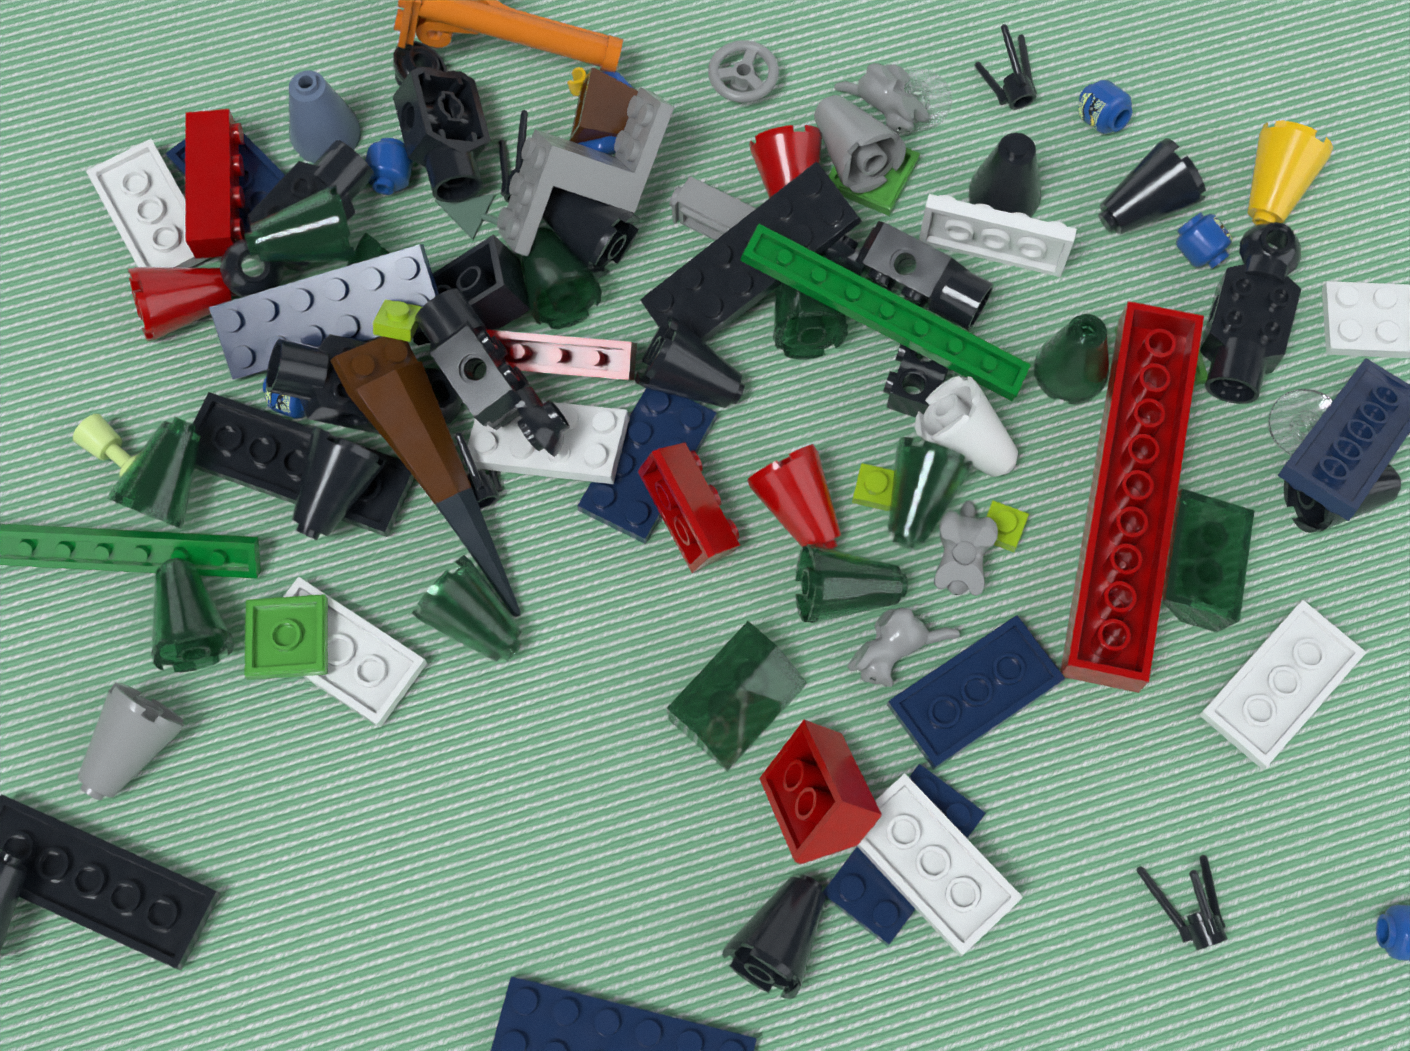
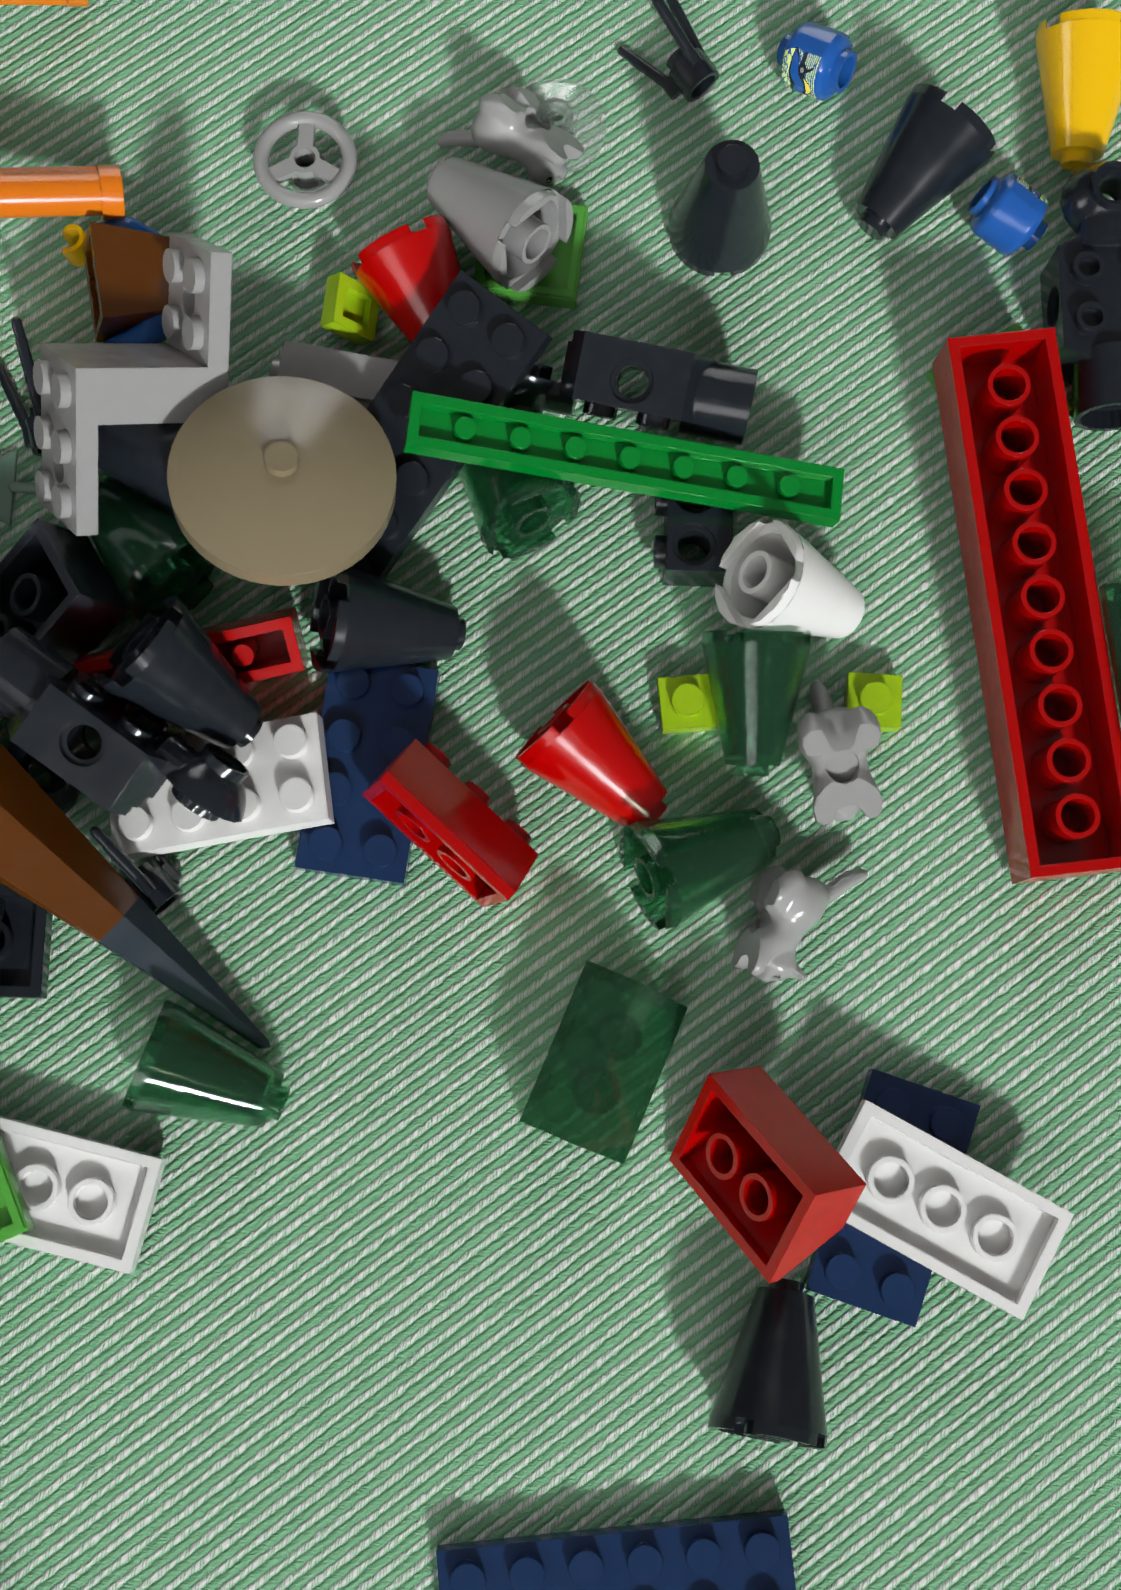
camera: 25 degrees left, 10 degrees up
(550, 357) = (183, 678): none -> black cone
(657, 255) = (282, 480): none -> dark tan dish
(739, 171) = (349, 309): none -> lime plate
(975, 692) = (913, 946): dark blue plate -> none
(996, 235) = (735, 294): white plate -> none
(1074, 361) = (894, 441): clear green cone -> none

